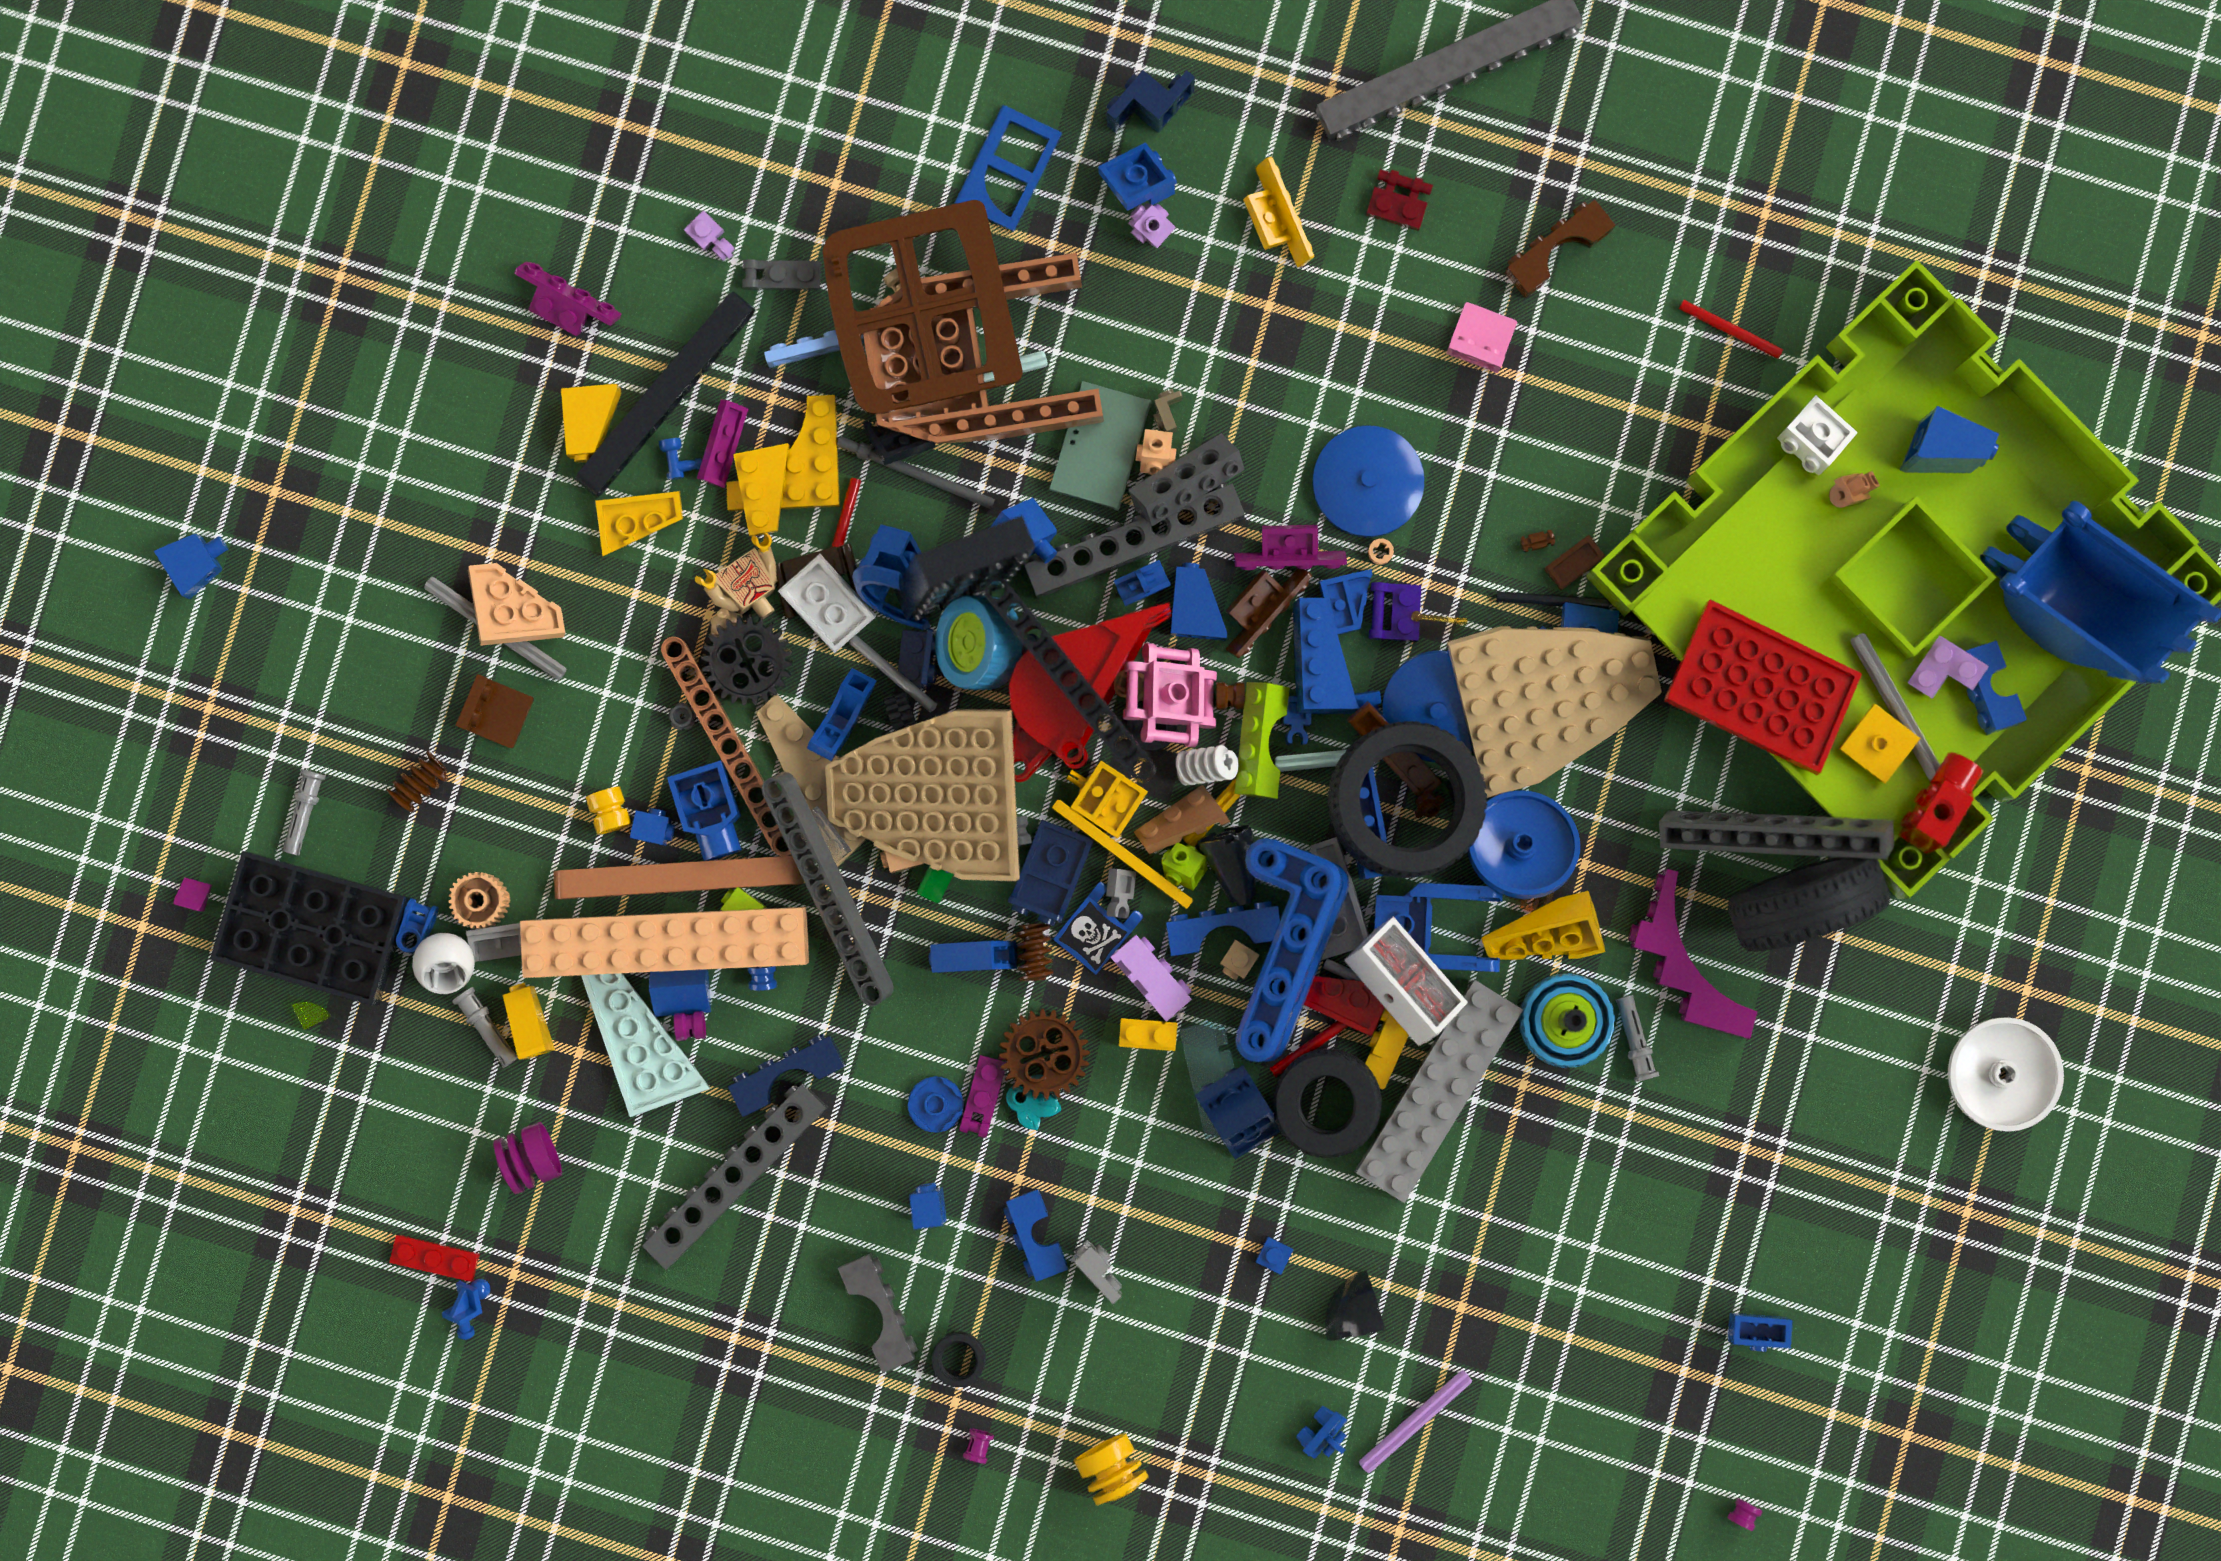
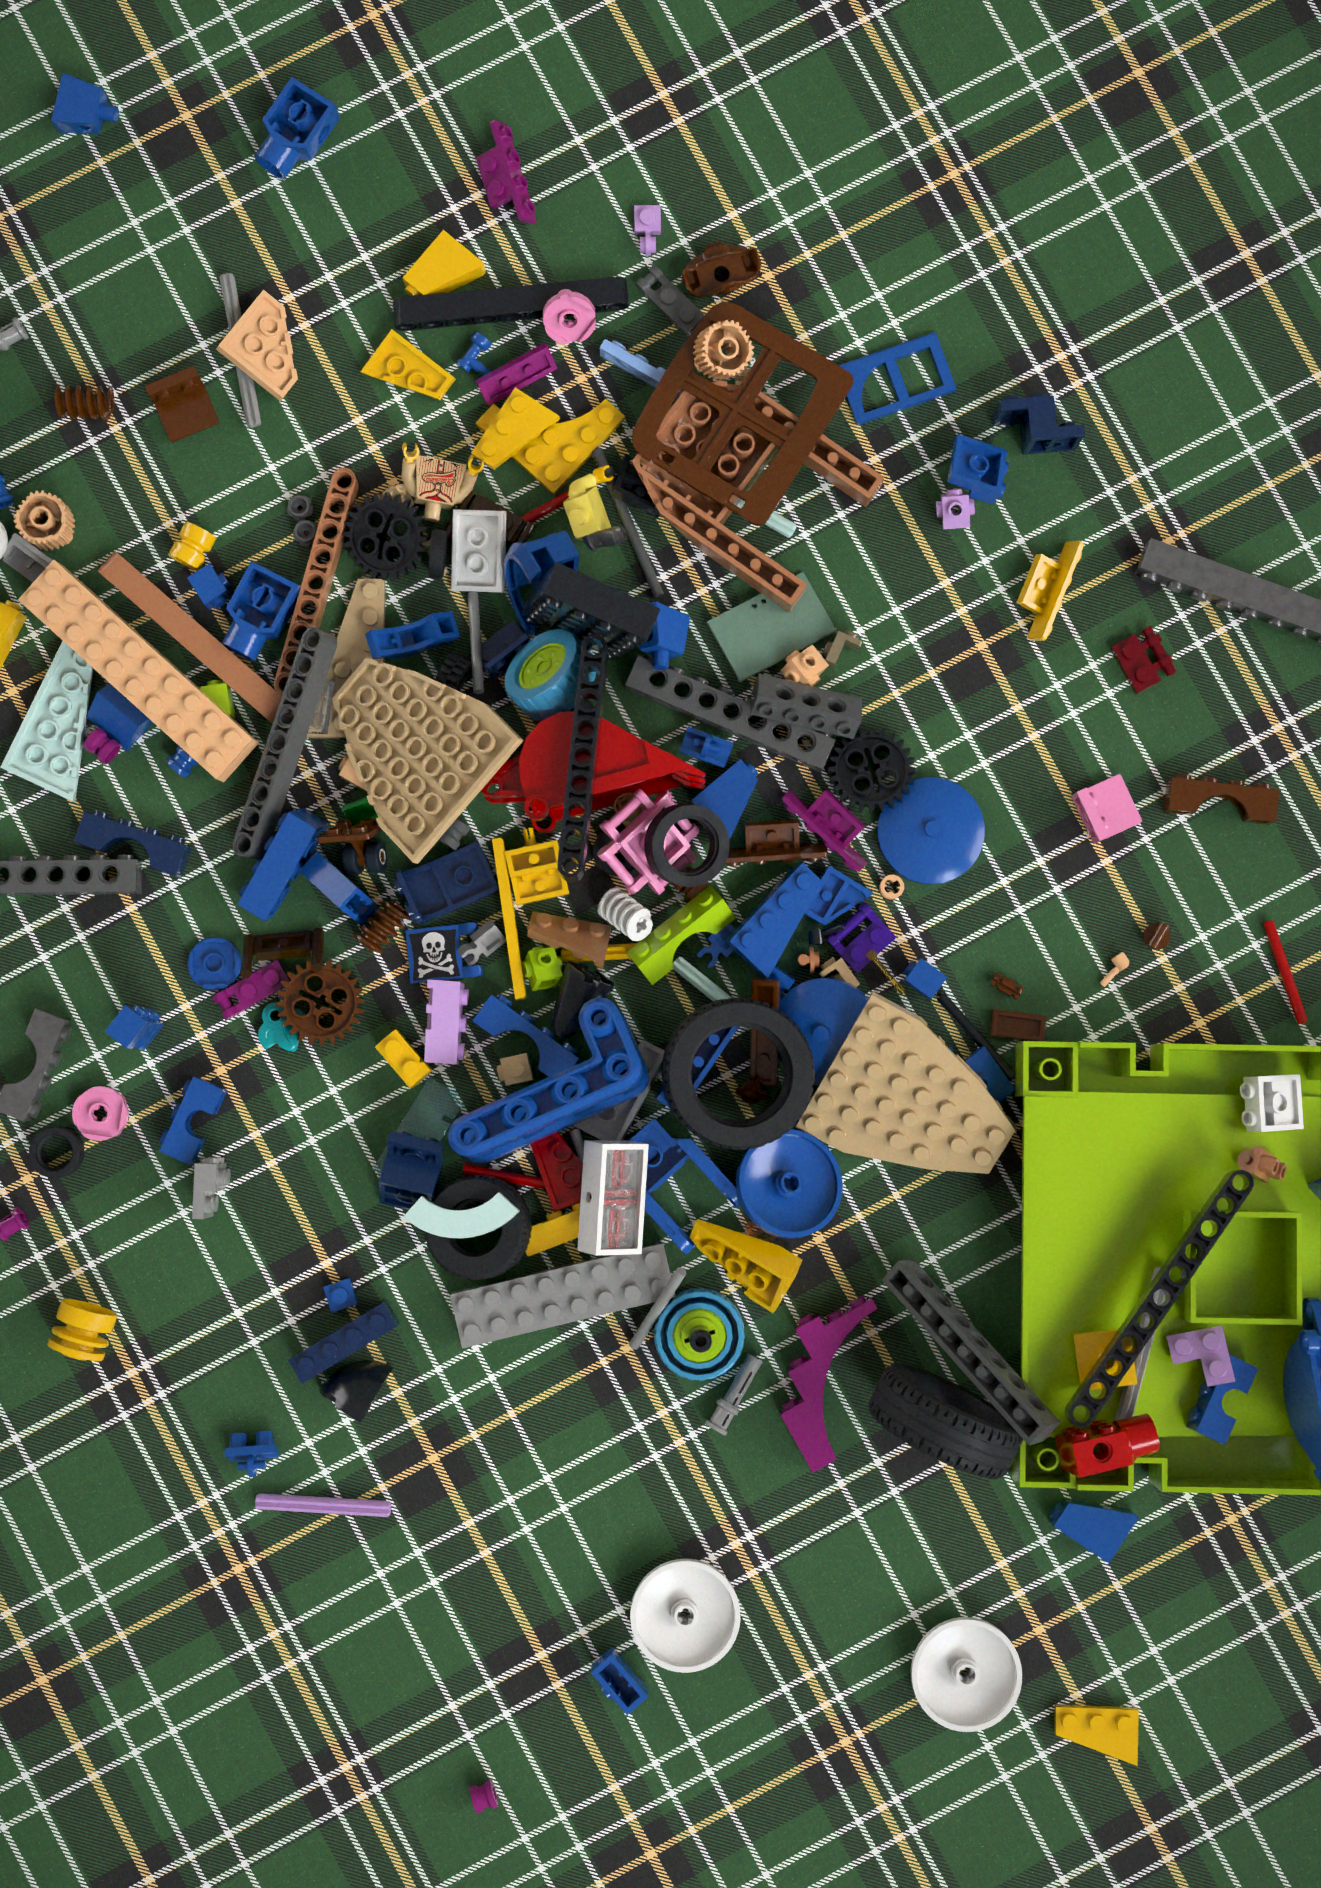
camera: 35 degrees right, 0 degrees up
(371, 421) = (295, 128): none -> blue brick
(653, 697) = (297, 501): none -> dark grey plate
(711, 352) = (569, 303): none -> bright pink plate
(799, 635) = (437, 554): none -> black tyre
(807, 195) = (740, 262): none -> reddish brown piece
(856, 286) = (708, 351): none -> light nougat brick
(883, 495) = (588, 513): none -> light yellow torso
(912, 979) = (281, 862): none -> blue wedge
(958, 915) = (358, 852): none -> plate
(959, 1314) = (88, 1123): none -> bright pink plate
(975, 1040) = (283, 946): none -> dark brown plate
(1229, 652) = (717, 851): none -> black tyre
(1294, 459) = (894, 765): none -> black gear
(1312, 1286) = (344, 1342): none -> dark blue arch
(1314, 1110) = (461, 1223): none -> light aqua tile
(1362, 642) = (816, 936): none -> black hand
(1376, 663) = (812, 959): none -> nougat plate
(1404, 648) = (842, 970): none -> tan bracket
(1471, 595) = (923, 978): none -> blue brick
(1518, 1031) = (657, 1308): none -> light grey bar
(1604, 441) = (1121, 962): none -> light nougat hand
(1611, 395) = (1156, 936): none -> reddish brown plate
(1763, 687) = (1062, 1239): red plate -> none
(1786, 1238) = (690, 1640): none -> white dish
(1879, 646) = (1172, 1291): none -> black beam
(1991, 874) = (1093, 1525): none -> blue slope
(2141, 1016) = (1101, 1728): none -> yellow wing

